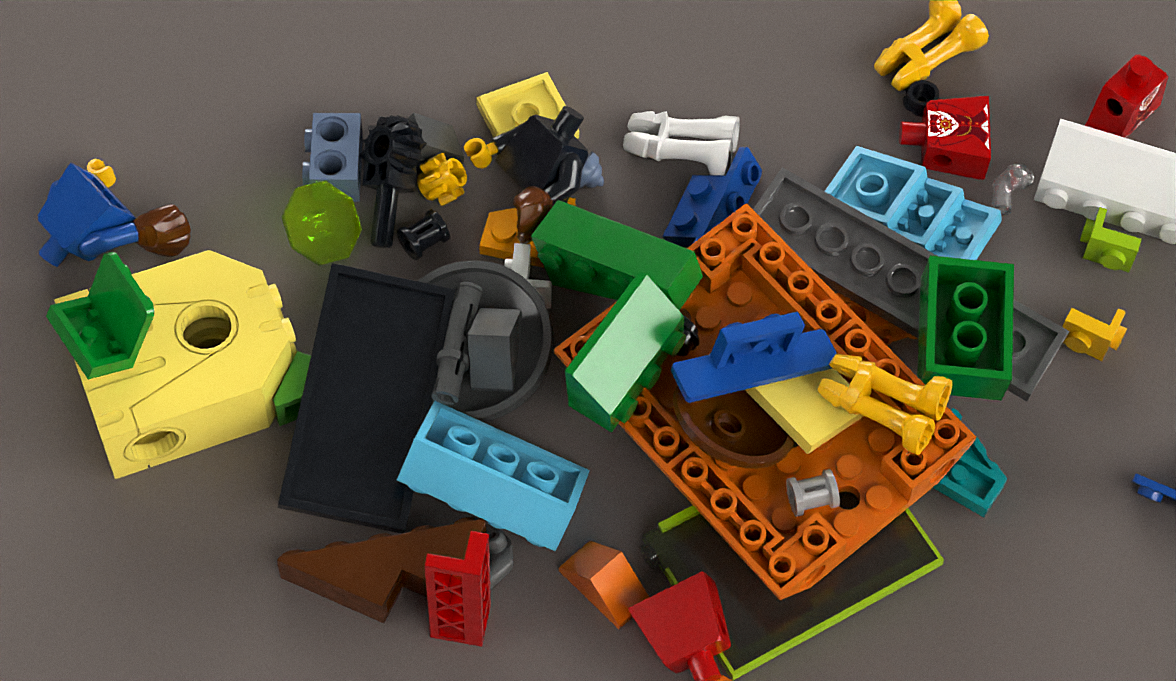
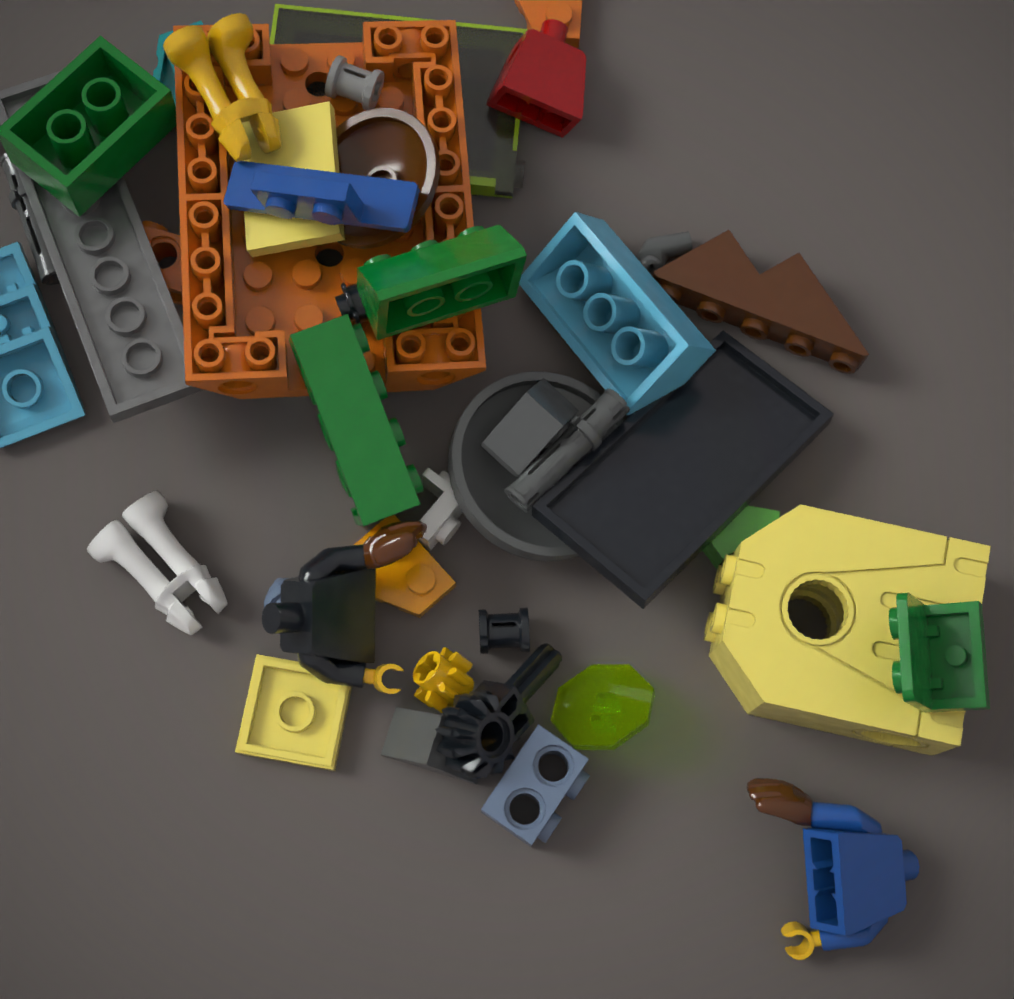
camera: 145 degrees left, 15 degrees up
(470, 597) = (730, 172): red fence -> none
(605, 580) = (576, 177): orange slope -> none
(713, 199) = (205, 469): blue bracket -> none

